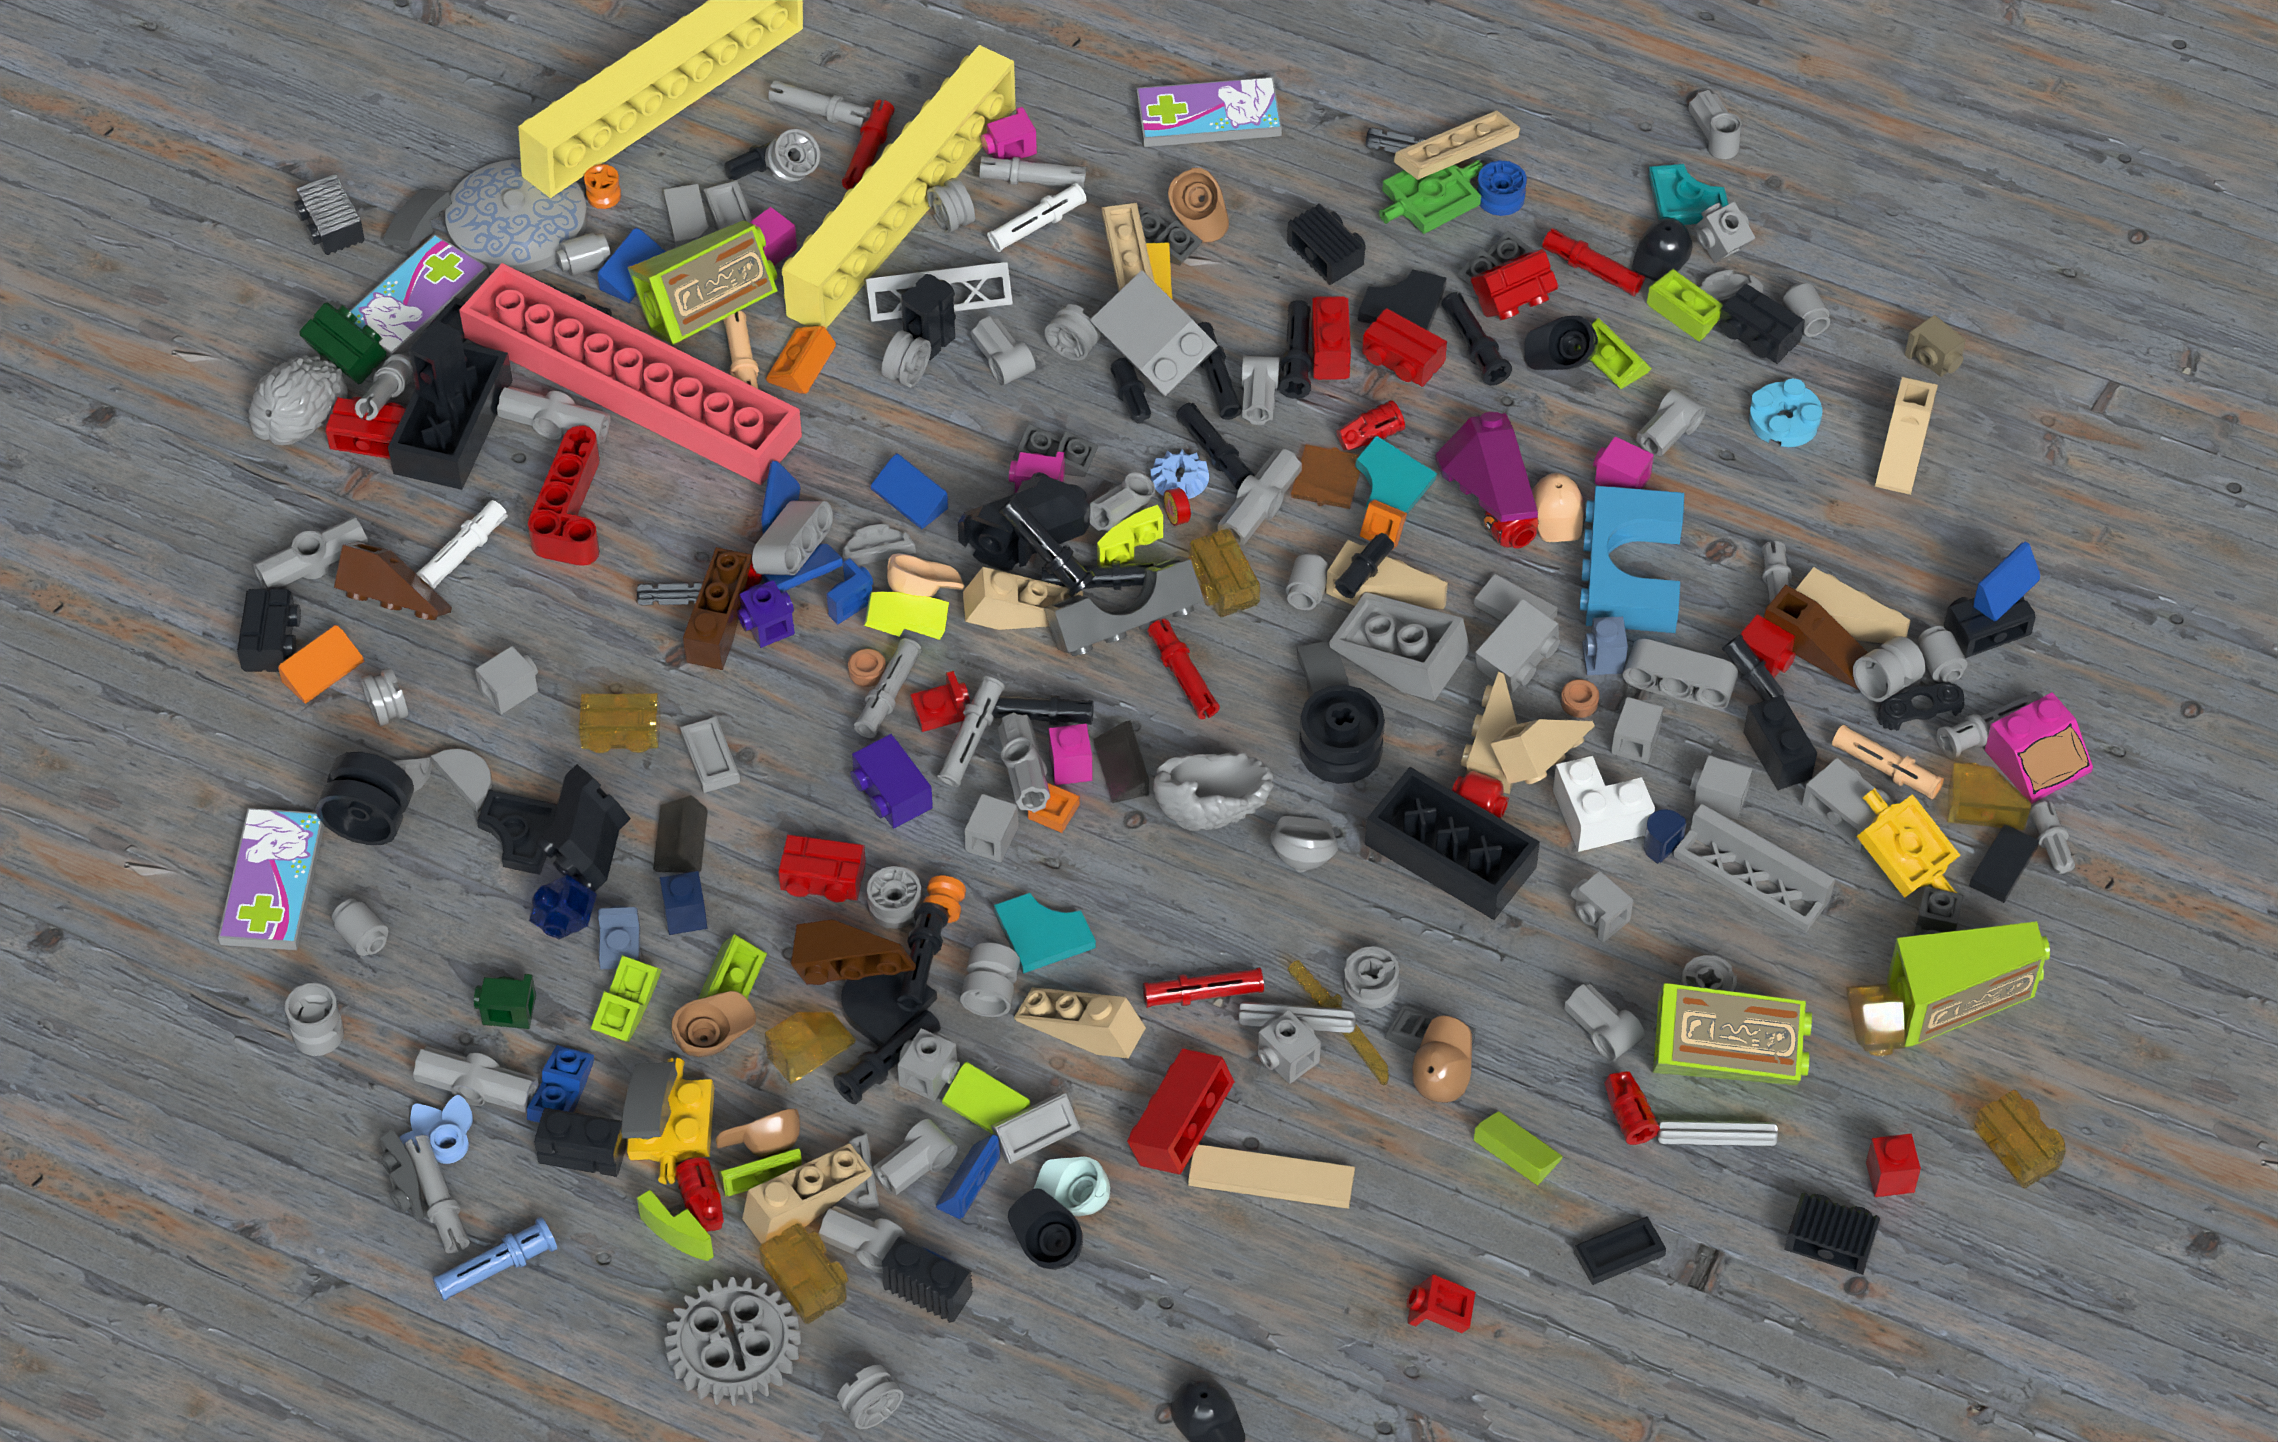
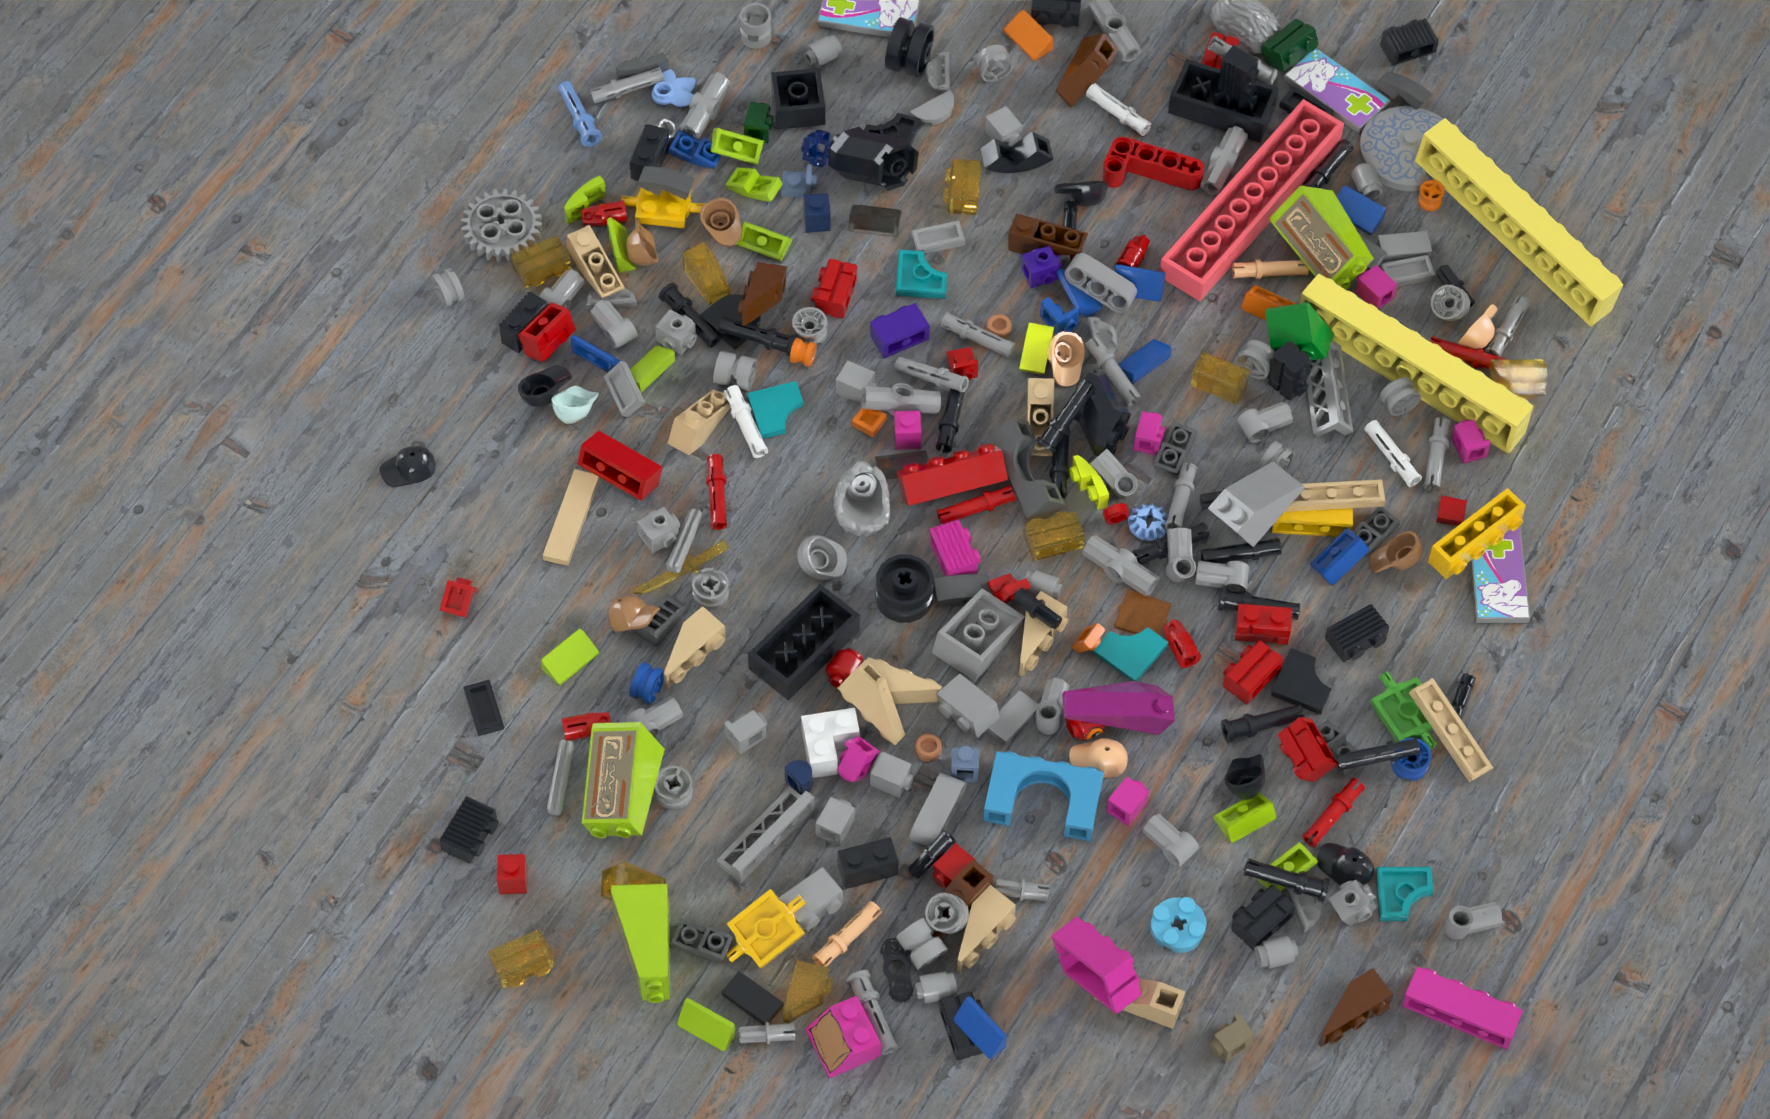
camera: 95 degrees right, 5 degrees up
(463, 943) = (798, 98): none -> black brick
(524, 1131) = (668, 125): none -> light grey hinge
(555, 1025) = (736, 146): none -> lime slope
(556, 659) = (1023, 156): none -> black brick
(618, 573) = (1084, 193): none -> black cap
(721, 511) = (1134, 252): none -> red hinge
(784, 775) = (917, 277): none -> teal tile
(832, 127) = (1481, 331): none -> light nougat cap
(873, 303) = (1300, 326): none -> green slope
(905, 82) = (1520, 376): none -> clear yellow brick
(926, 527) = (1107, 362): none -> light grey pin
(939, 400) = (1220, 377): none -> clear yellow brick
(948, 1236) = (547, 332): none -> red brick
(1060, 967) = (741, 412): none -> white pin
(1117, 159) = (1451, 510): none -> red tile
(1145, 690) = (952, 475): none -> red brick
(1150, 437) = (1183, 489): none -> light grey pin
(1170, 113) = (1476, 534): none -> yellow brick
(1208, 266) = (1339, 556): none -> blue slope
(1250, 427) = (1180, 552): none -> light grey piece
(1266, 686) = (953, 549): none -> dark pink brick
(1326, 613) = (1006, 587): none -> red bracket
(1472, 987) = (695, 640): none -> tan slope
(1506, 559) = (1051, 706): none -> light grey piece
(1509, 194) = (1410, 747): none -> black pin
(1552, 1031) = (646, 683): none -> blue wheel
(1628, 759) = (857, 759): none -> dark pink brick
(1712, 279) = (1298, 882): none -> black pin
(1835, 636) = (958, 913): none -> light grey wheel
(1837, 131) = (1462, 1007): none -> dark pink brick
(1859, 230) = (1361, 1000): none -> reddish brown slope
(1889, 464) = (1097, 964): none -> dark pink piece
(2061, 907) = (706, 1024): none -> lime slope

